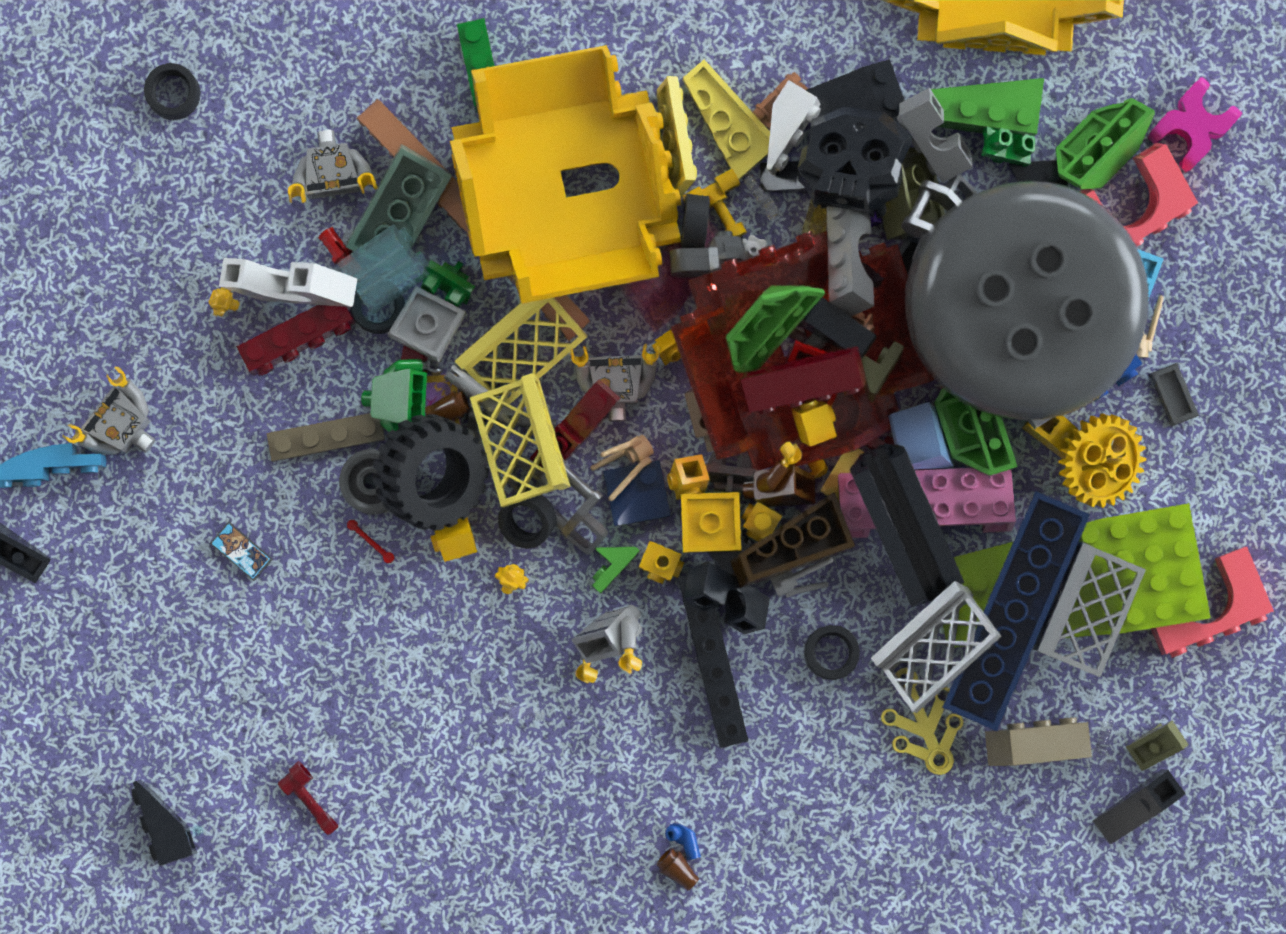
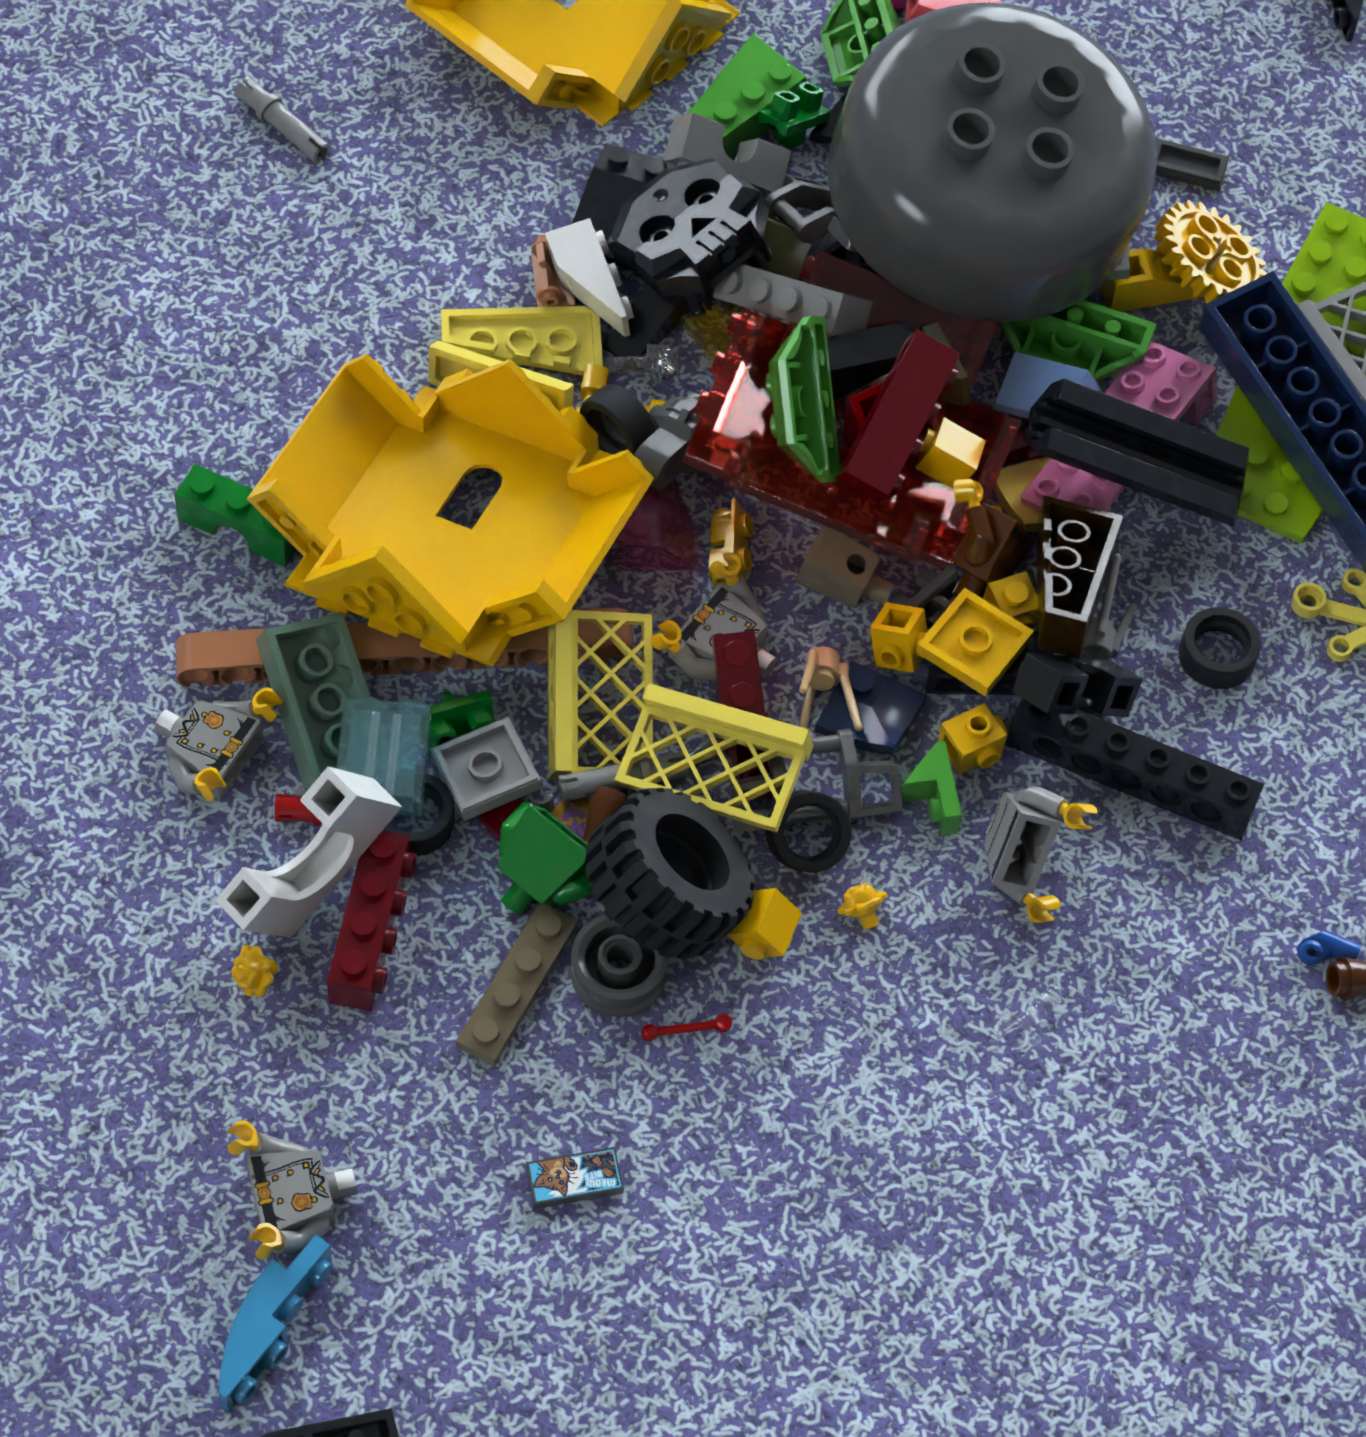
camera: 55 degrees left, 25 degrees down
(295, 782) = (918, 1324): dark red brick -> none
(925, 626) = (1267, 521): light grey fence -> none

